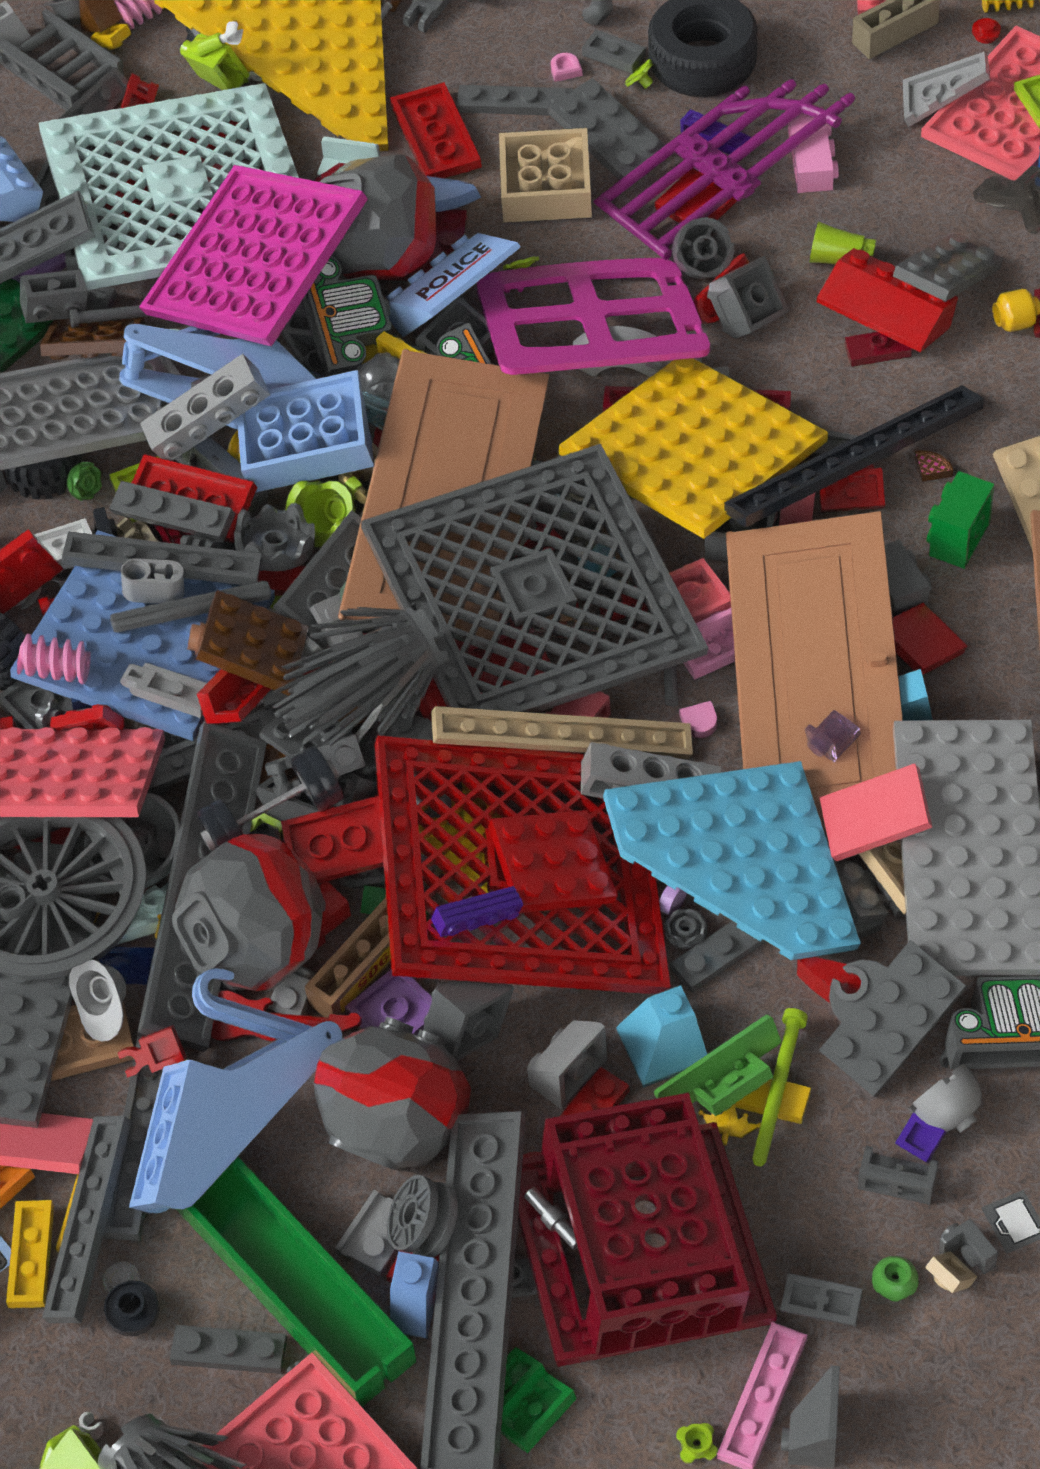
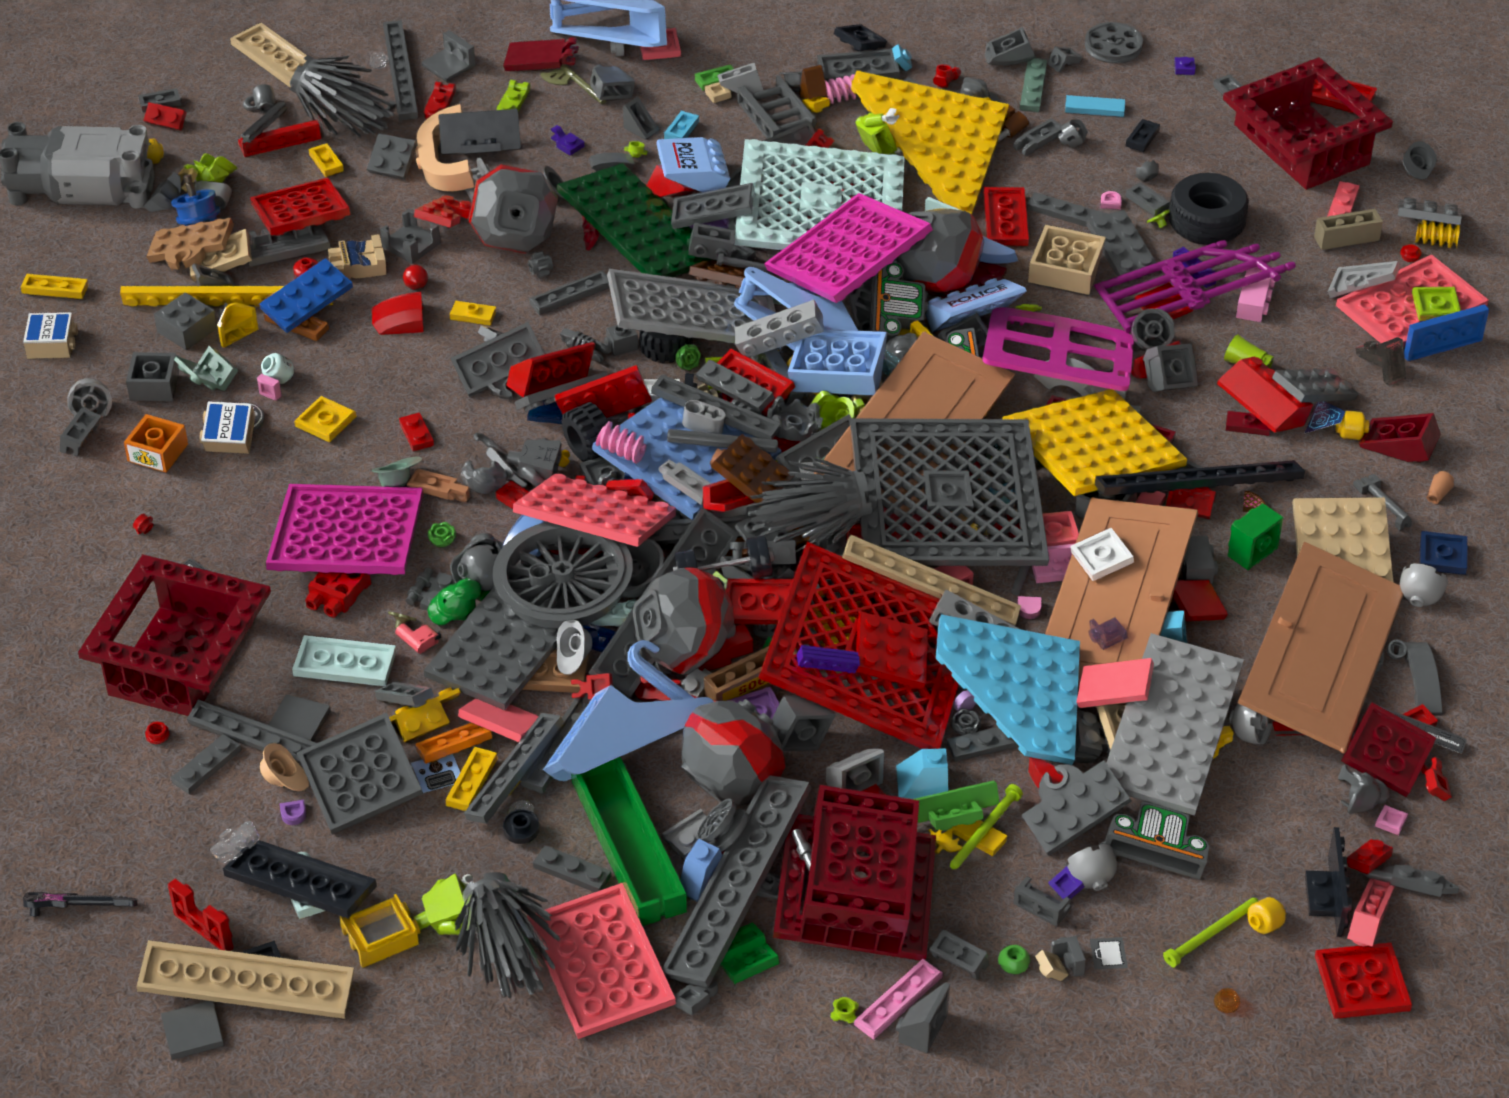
camera: 15 degrees right, 10 degrees down
(778, 618) = (1102, 554): none -> white plate
(977, 308) = (1324, 416): none -> dark blue sticker

